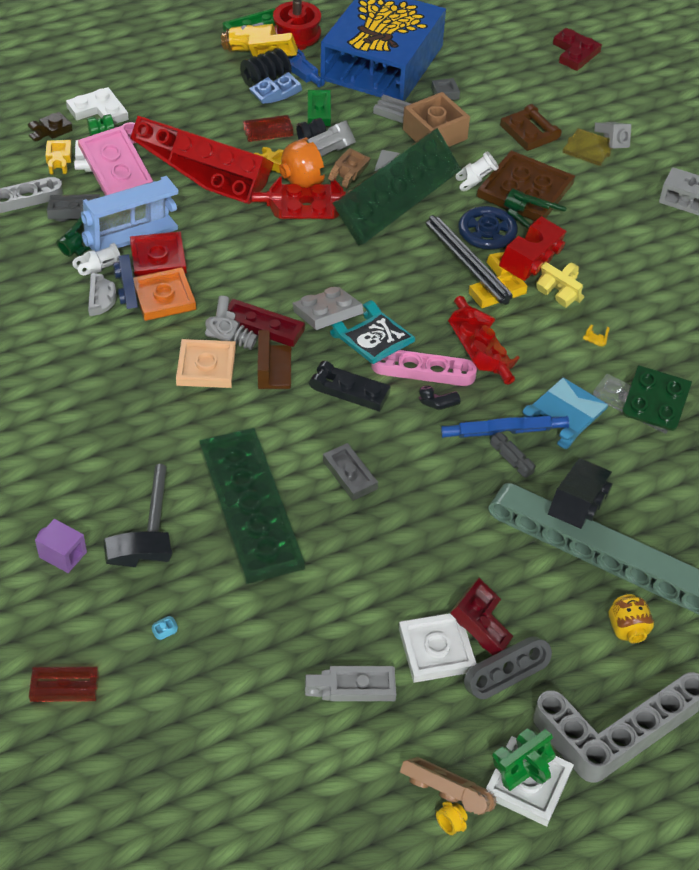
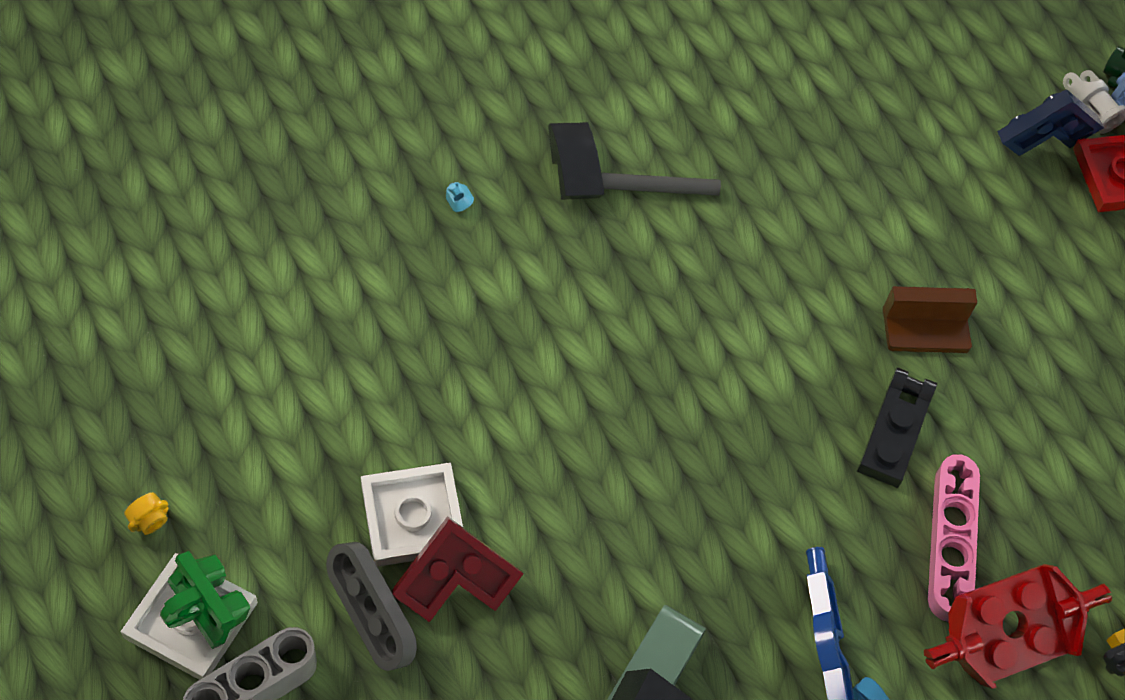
camera: 85 degrees right, 10 degrees up
(60, 545) = (576, 79): medium lavender brick -> none
(63, 688) = (380, 123): clear red tile -> none
(101, 295) = (1017, 102): light grey plate -> none
(164, 294) = (1044, 180): orange plate -> none
(206, 363) = (914, 235): light nougat plate -> none
(226, 328) = (984, 254): light grey piece -> none
(251, 506) = (656, 288): clear green plate -> none
(282, 328) = (1007, 308): dark red plate -> none
(327, 307) = (1052, 394): light grey plate -> none
(350, 471) = (723, 416): flat silver plate -> none
(353, 683) = (357, 408): light grey hinge -> none
(374, 337) = (1002, 462): flag -> none
(438, 402) = (882, 550): black arm -> none
(450, 785) = (188, 505): medium nougat hinge -> none
(513, 454) = (778, 659): dark grey axle -> none

